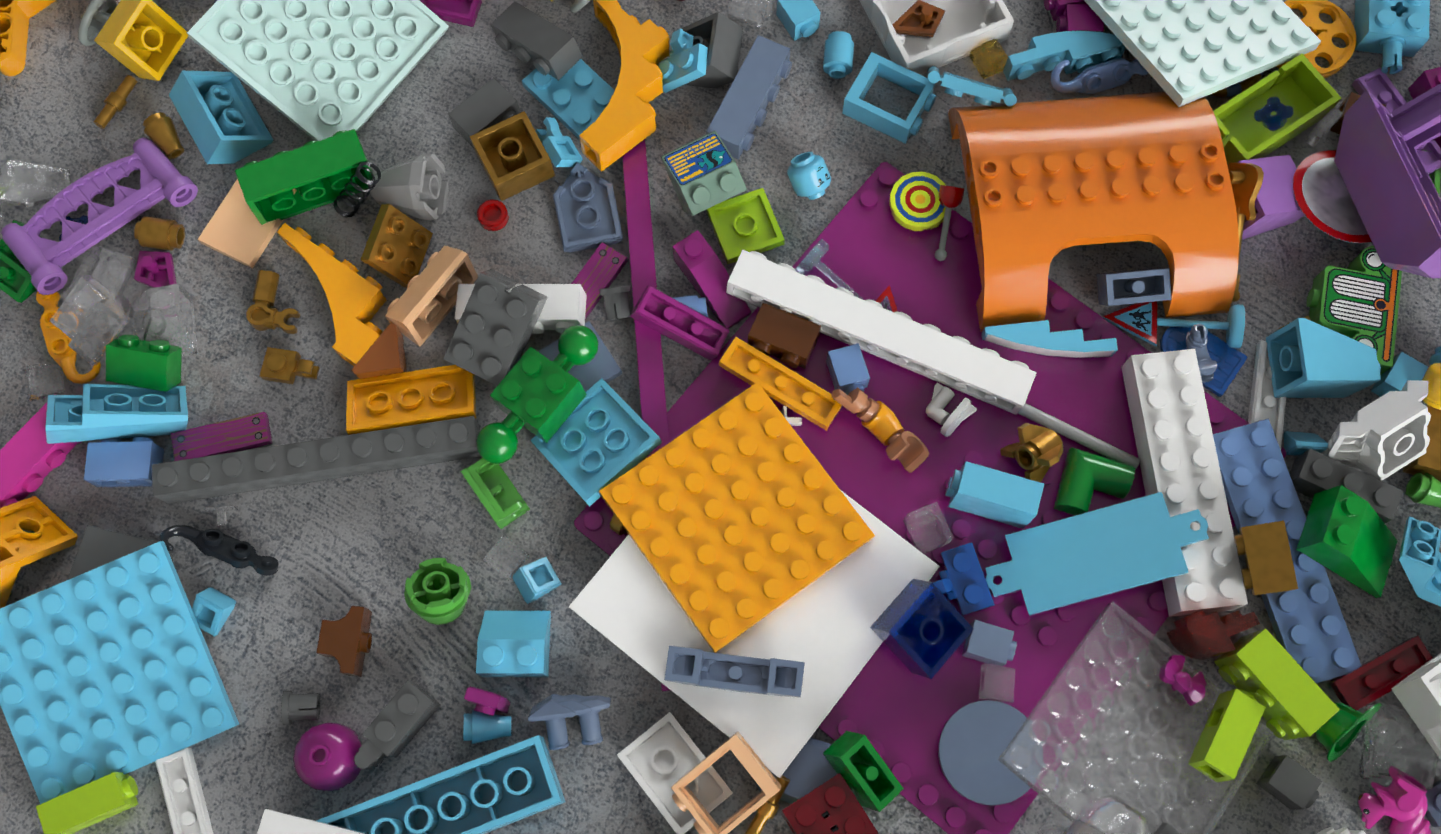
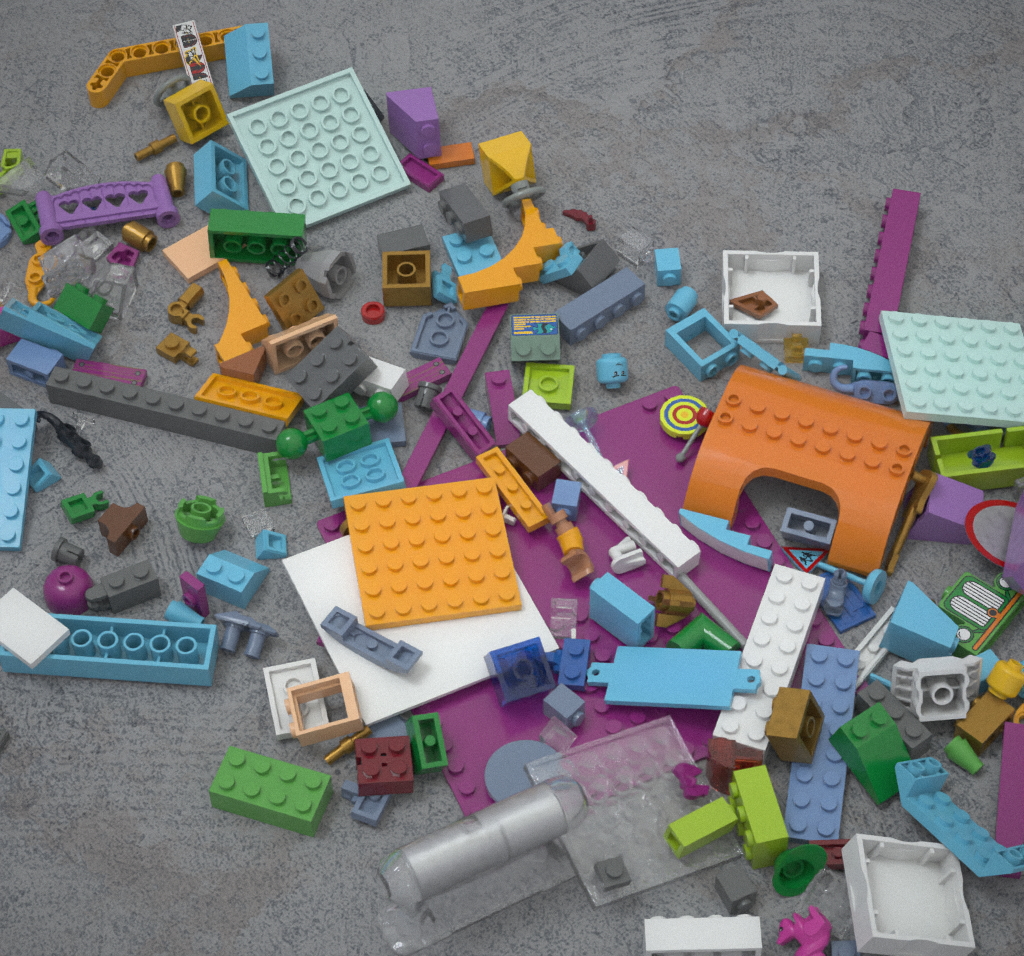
camera: 25 degrees right, 20 degrees down
(282, 636) = (82, 508): none -> green plate

